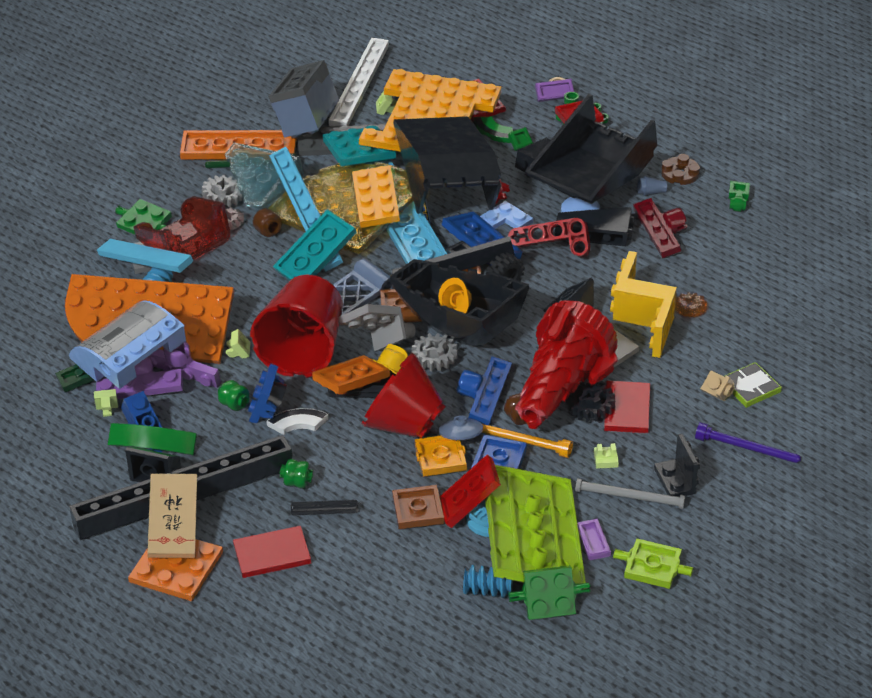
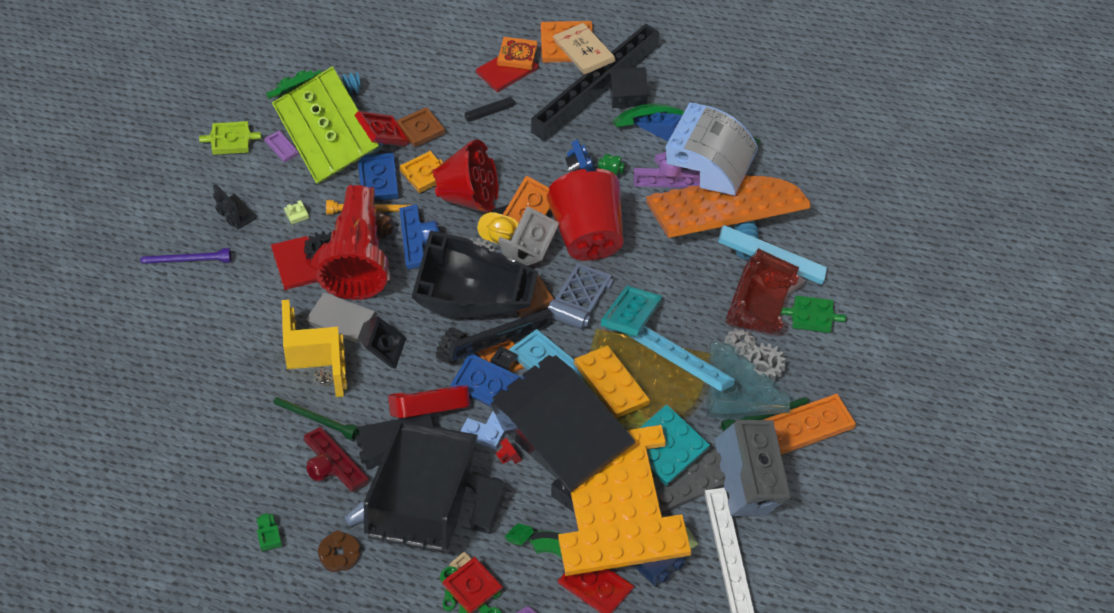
camera: 155 degrees right, 10 degrees up
(238, 345) = (638, 213): yellowish green tile -> none
(249, 556) = (517, 53): none -> orange tile
(267, 222) = (698, 339): reddish brown head -> none
(296, 473) = (521, 120): green piece -> none
(297, 419) = (551, 170): white tile -> none
(455, 295) = (473, 283): light orange piece -> none
(461, 428) = (411, 196): sand blue dish -> none
(630, 493) = (268, 187): light grey bar -> none
(634, 244) = (347, 430): none -> dark green piece
(695, 309) = (281, 388): clear orange gear -> none
(718, 386) = (223, 299): tan bracket -> none
(753, 384) = (198, 316): tile -> none

